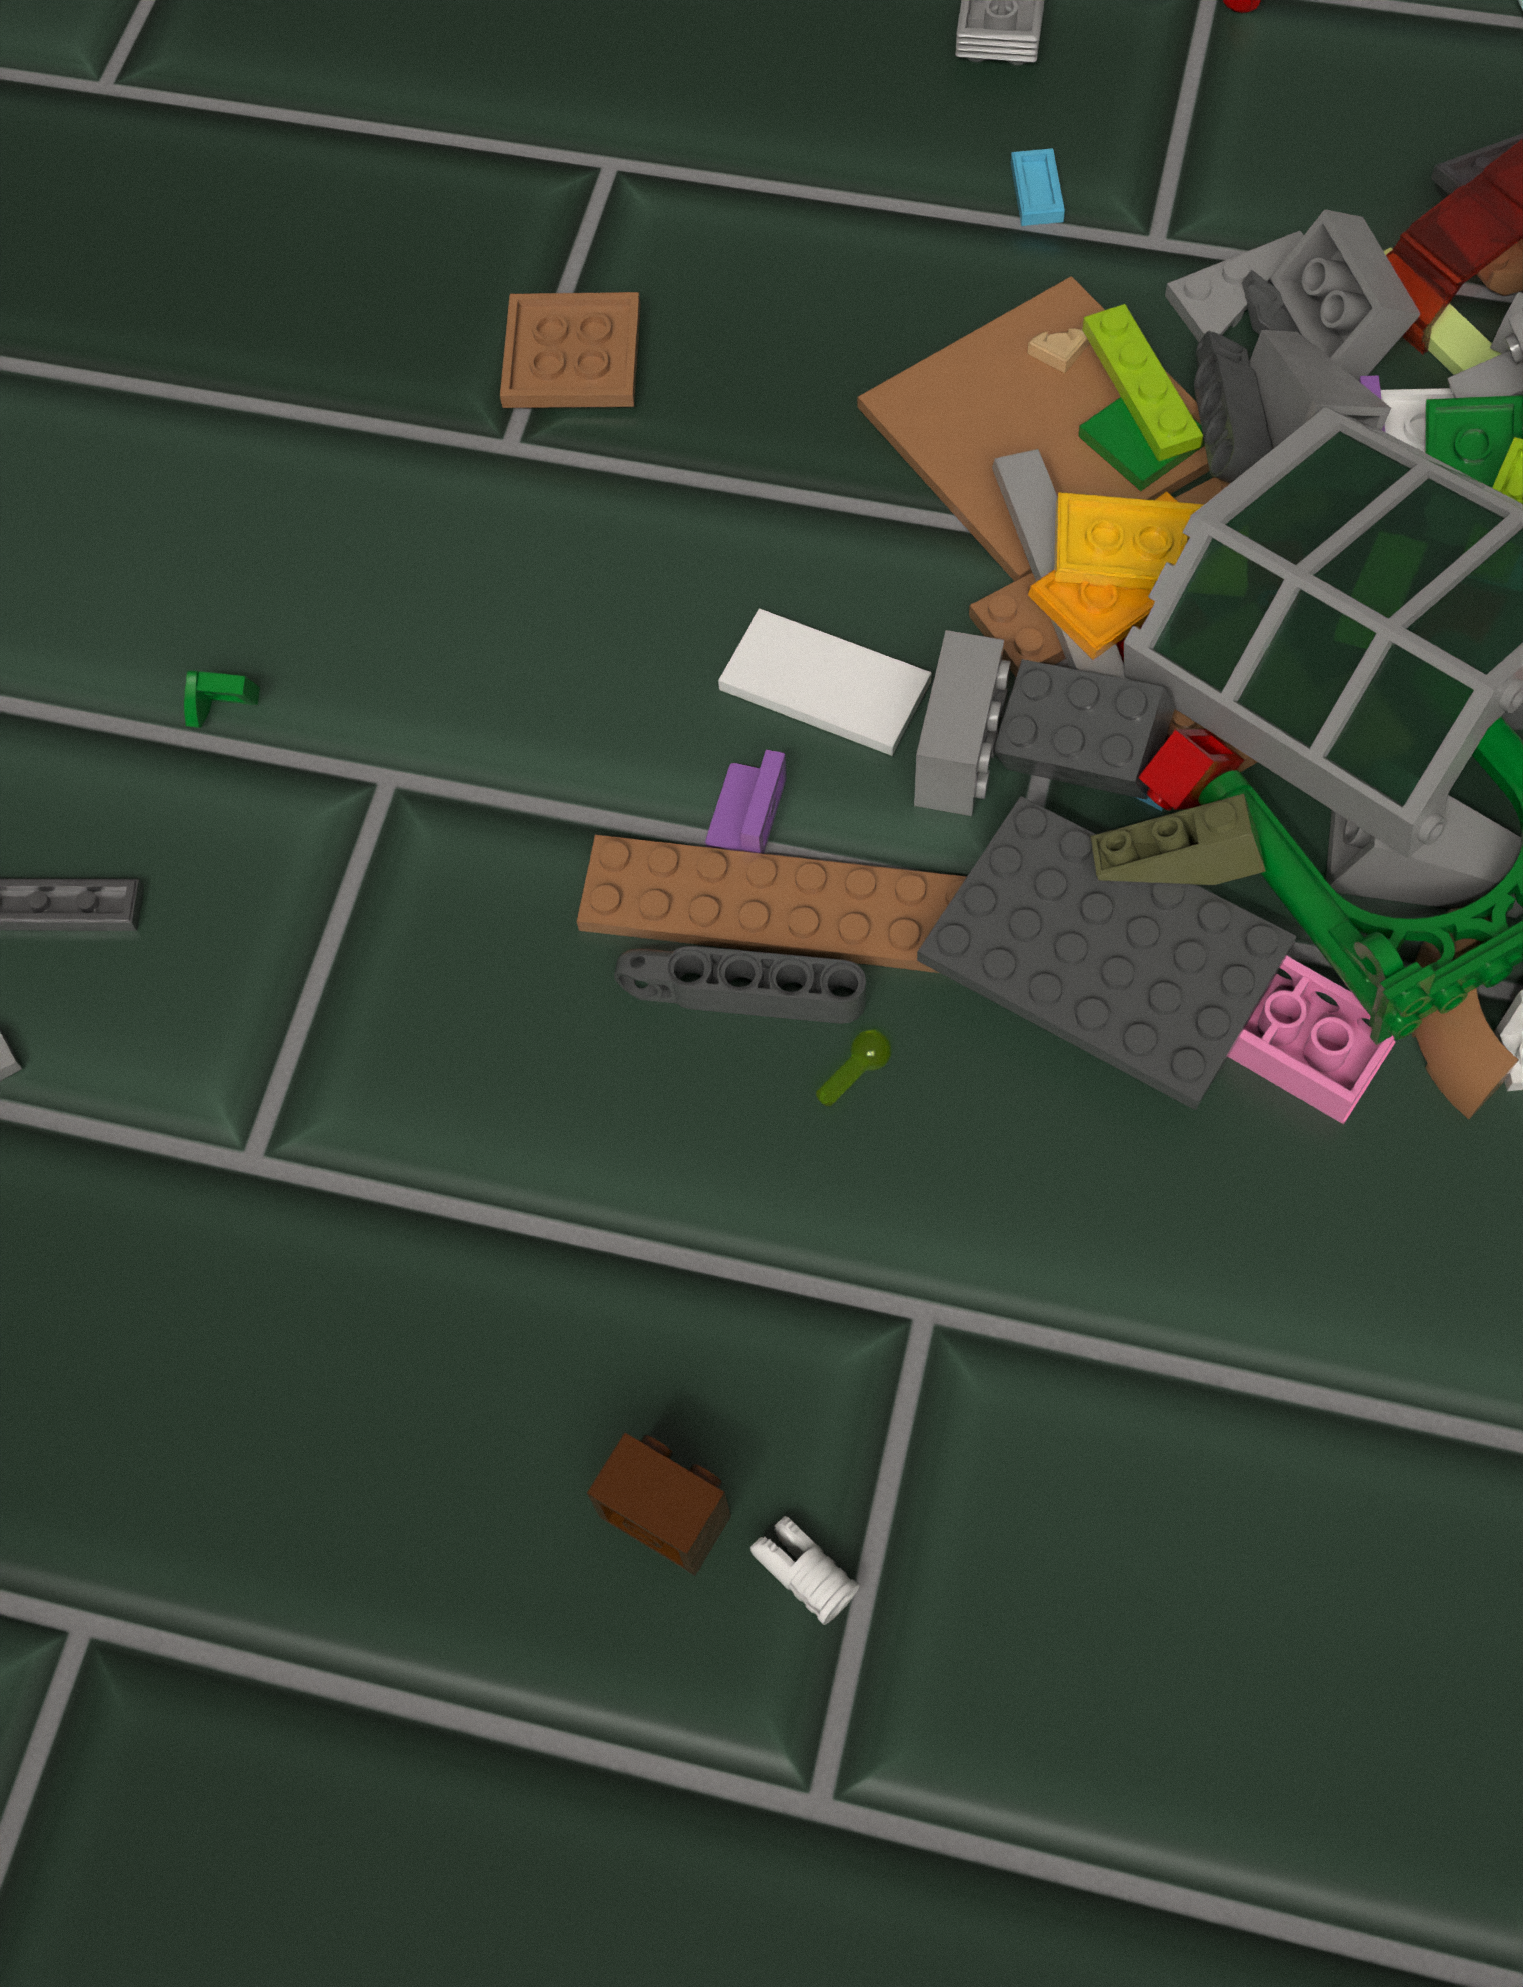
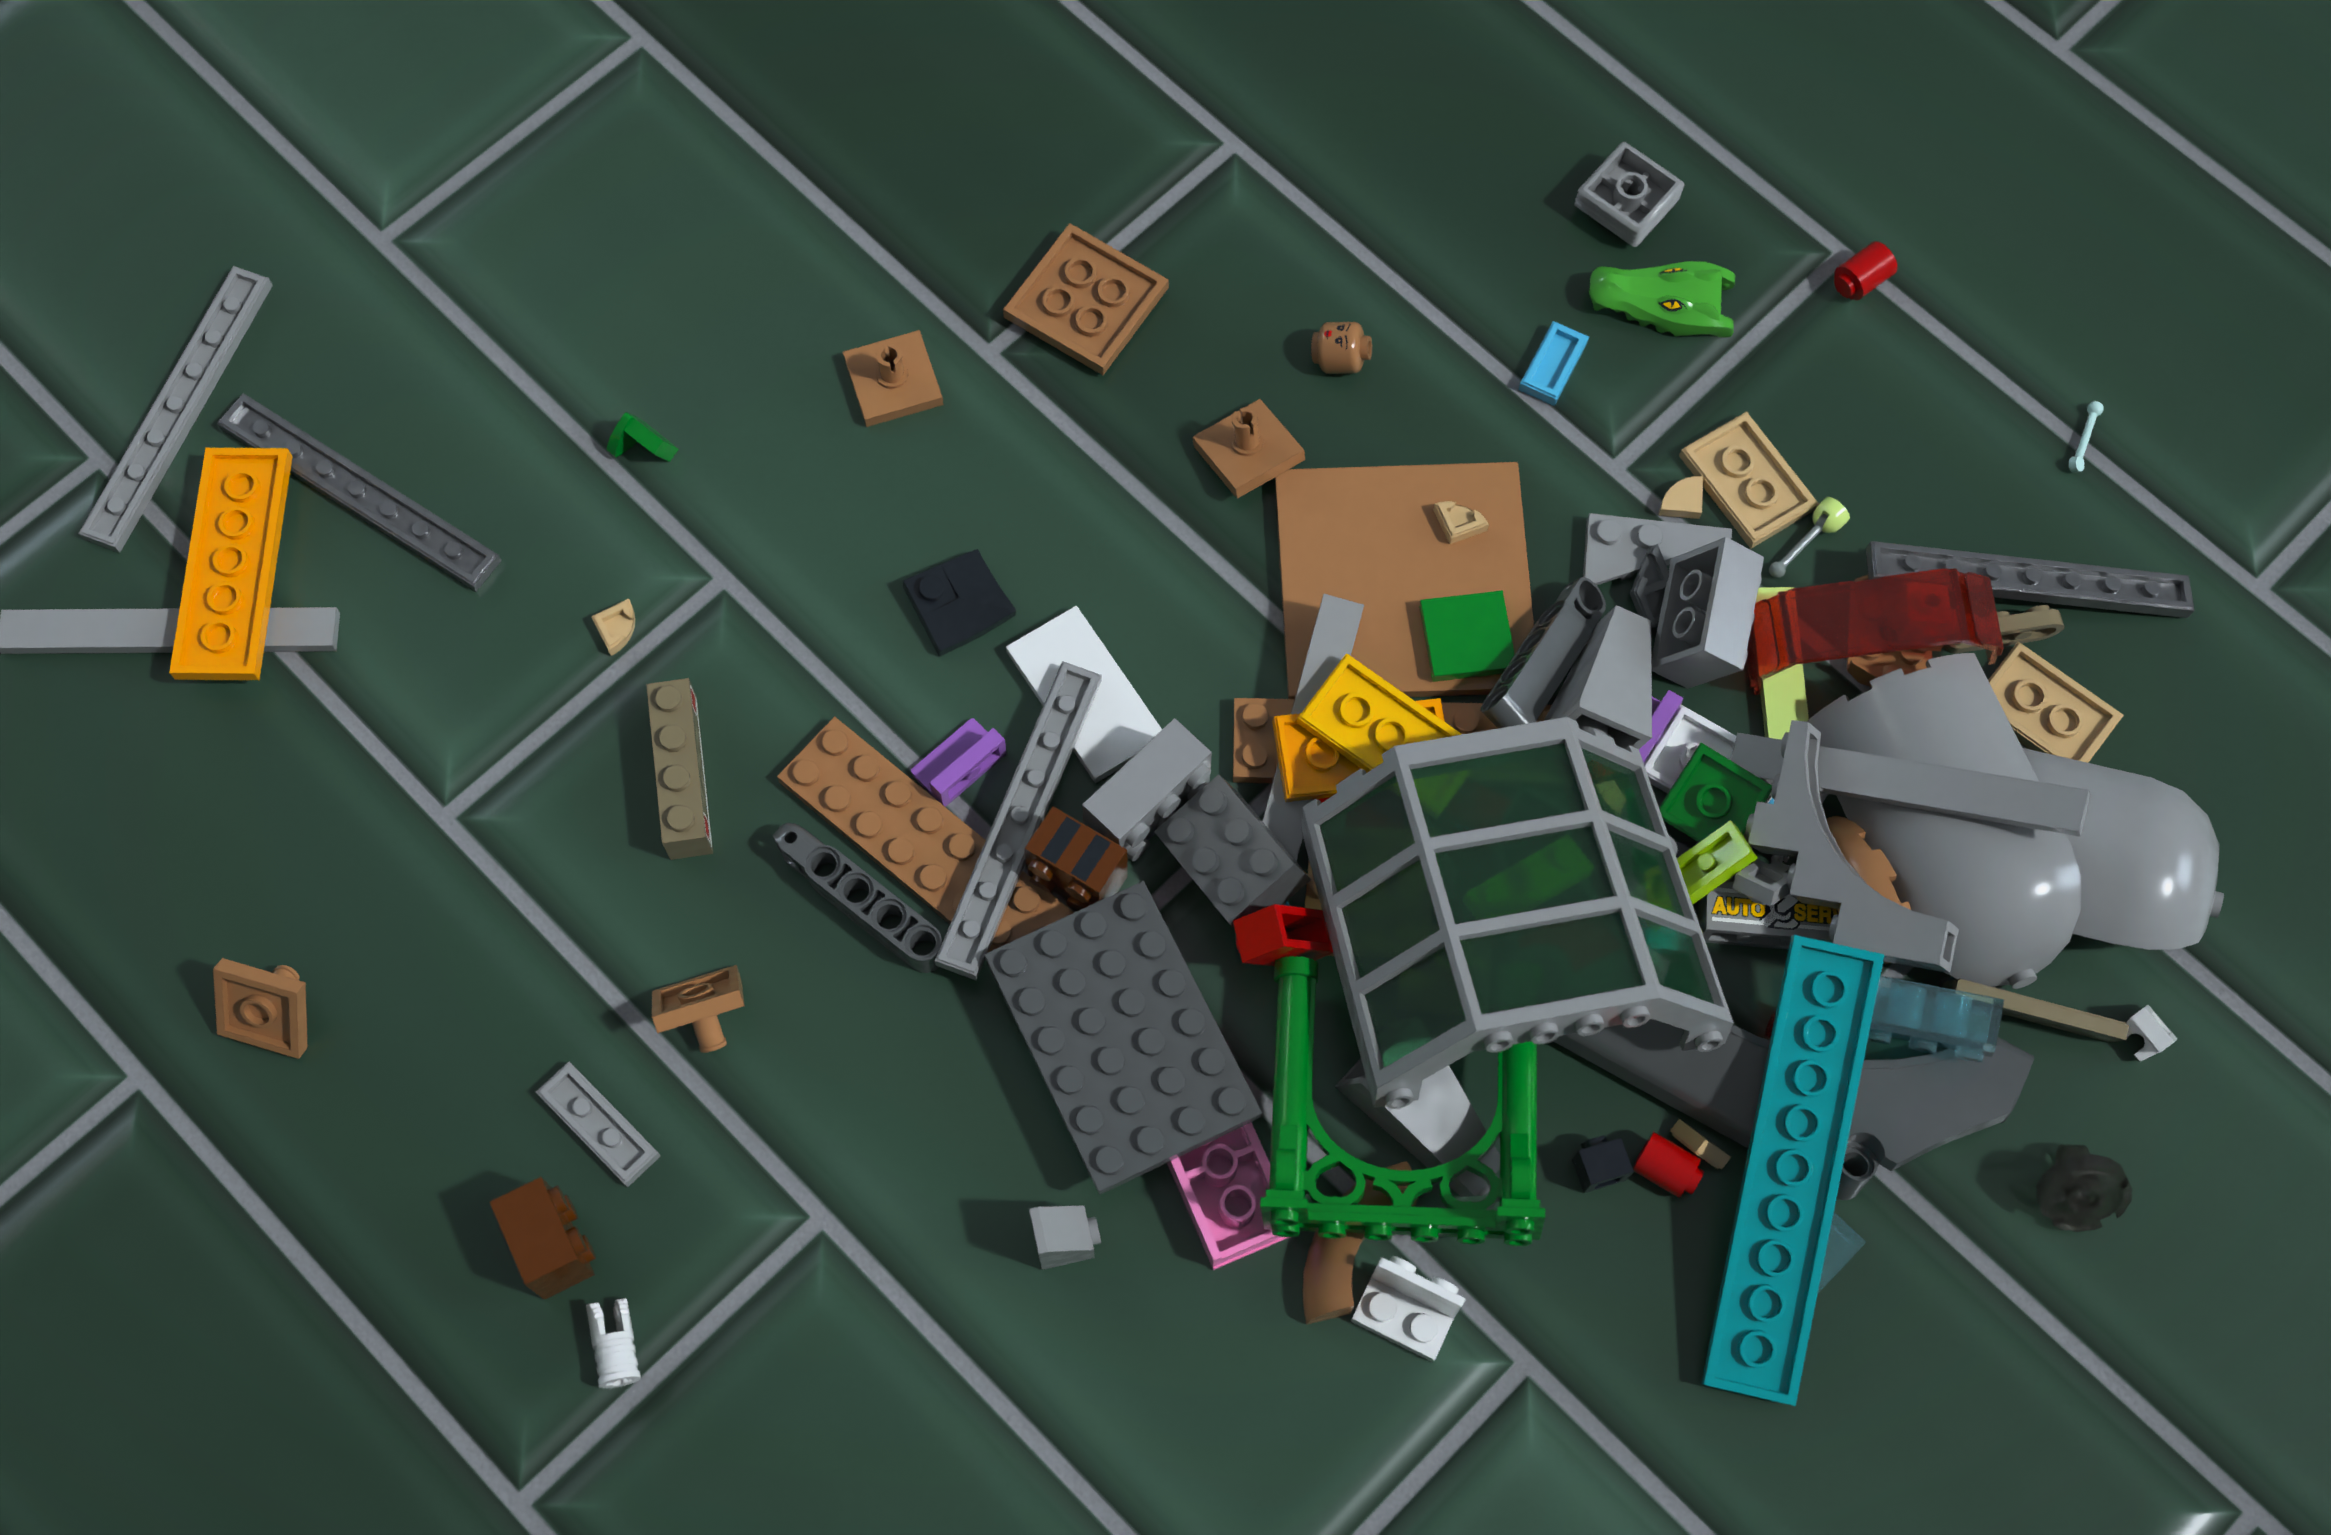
camera: 25 degrees right, 5 degrees up
(182, 1459) = (261, 1007): none -> medium nougat tile
(307, 879) = (616, 625): none -> tan tile
(432, 513) = (893, 378): none -> medium nougat tile
(474, 968) = (679, 769): none -> dark tan brick
(628, 1362) = (598, 1124): none -> light grey tile
(641, 669) = (958, 601): none -> black plate
(656, 1174) = (699, 1003): none -> medium nougat tile
(819, 391) = (1248, 448): none -> medium nougat tile
(841, 266) = (1341, 347): none -> medium nougat head
(852, 825) = (1017, 821): none -> light grey tile
(868, 1052) = (916, 1003): clear neon green bar -> none
(939, 820) = (1074, 861): none -> reddish brown brick
(1100, 80) = (1671, 297): none -> bright green animal
(1142, 382) = (1493, 592): lime plate -> none
(1184, 1175) = (1064, 1234): none -> light grey slope
(1185, 847) = (1221, 996): olive slope -> none
(1238, 232) = (1684, 499): none -> tan tile
(1276, 186) = (1748, 479): none -> tan tile
(1373, 185) = (1828, 518): none -> hinge

